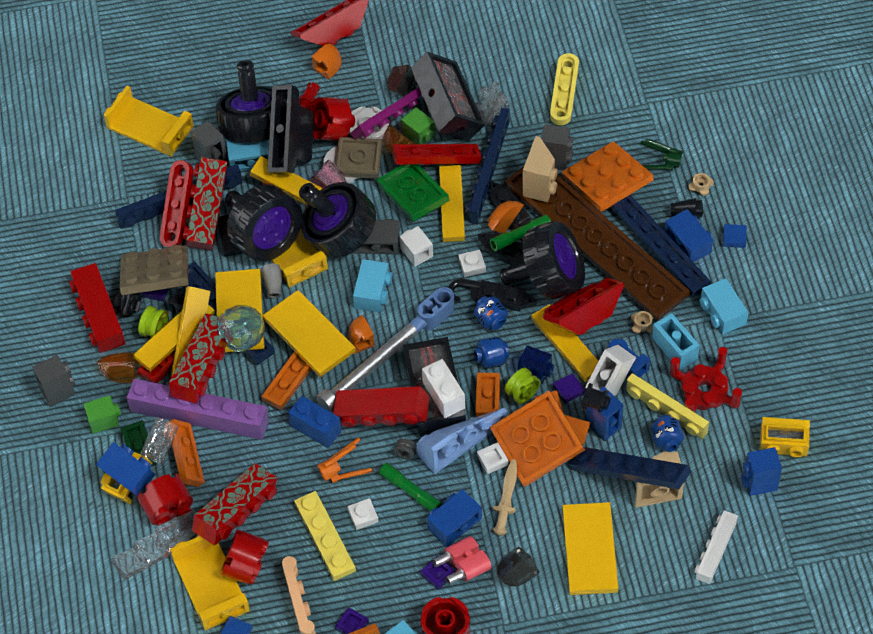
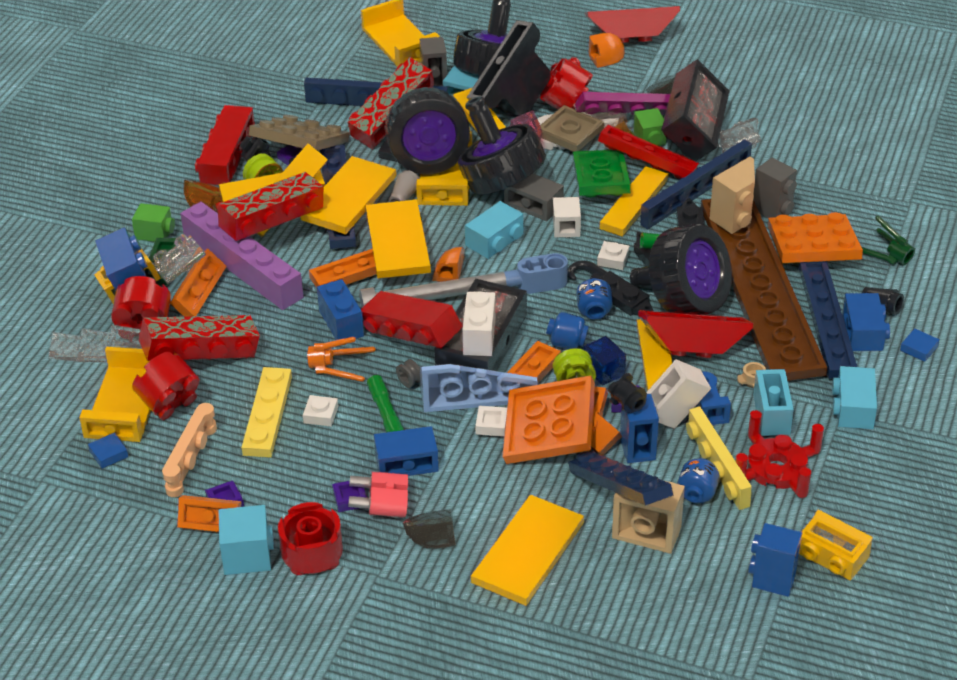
camera: 30 degrees right, 15 degrees down
(54, 380) = (132, 175): dark grey brick -> none
(176, 203) = (367, 85): red plate -> none
(241, 327) = (328, 196): clear light blue cylinder -> none
(504, 215) = (675, 219): orange brick -> none
(504, 507) = (467, 469): tan sword -> none
(564, 89) = (827, 155): light yellow plate -> none
(703, 179) = (915, 285): tan plate -> none
(716, 547) = (671, 614): white piece -> none

